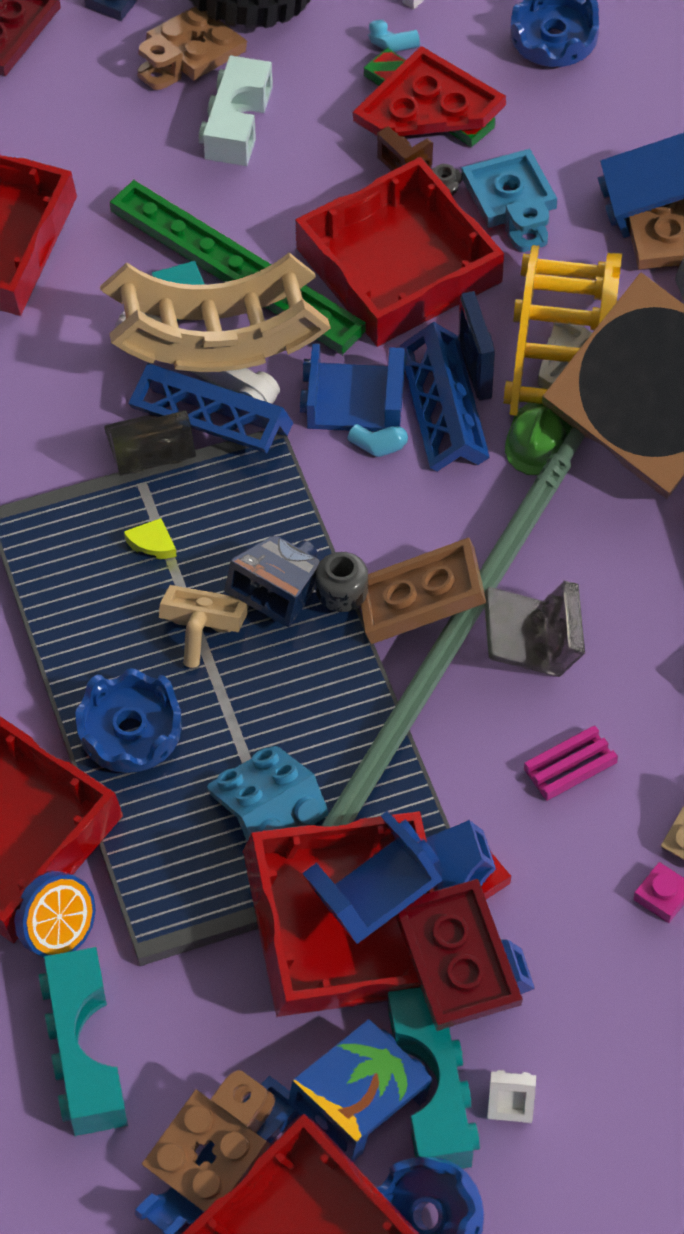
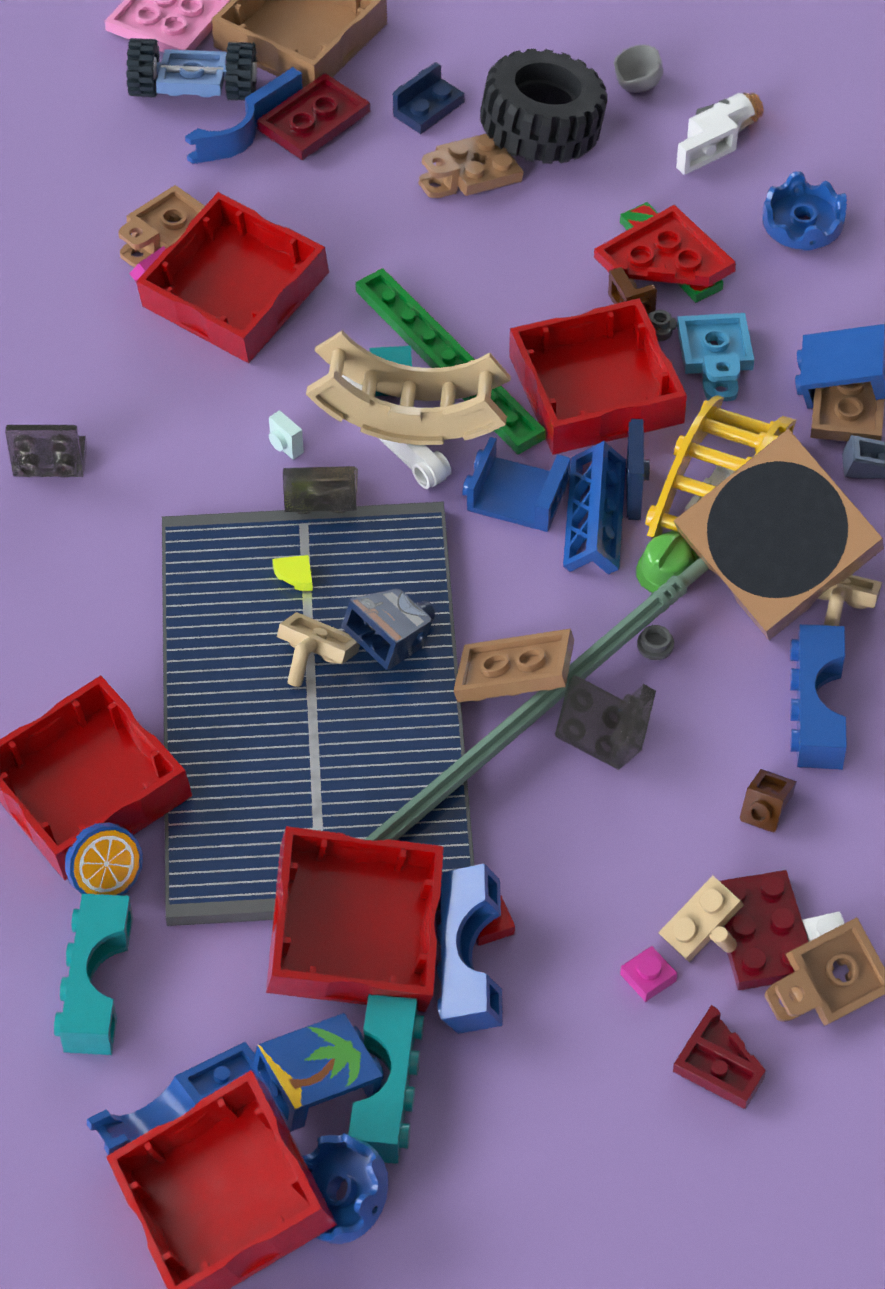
camera: 15 degrees right, 5 degrees down
(90, 388) = (285, 435): none -> light aqua plate
(123, 698) = (216, 697): blue plate -> none
(211, 399) = (384, 464): blue fence -> none
(216, 1120) = (189, 1064): medium nougat plate -> none
(241, 88) = (481, 242): light aqua arch -> none
(270, 793) = (324, 803): dark azure bracket -> none
(341, 581) = (446, 641): dark grey head -> none
(380, 442) = (525, 535): medium azure arm -> none
(381, 884) = (386, 899): blue panel -> none
(396, 42) = (655, 198): medium azure arm -> none
(458, 955) = (435, 974): dark red plate -> none
(511, 1096) = (450, 1111): white tile -> none
(554, 530) = (655, 642): none -> dark grey plate
(560, 751) = (600, 838): dark pink tile -> none

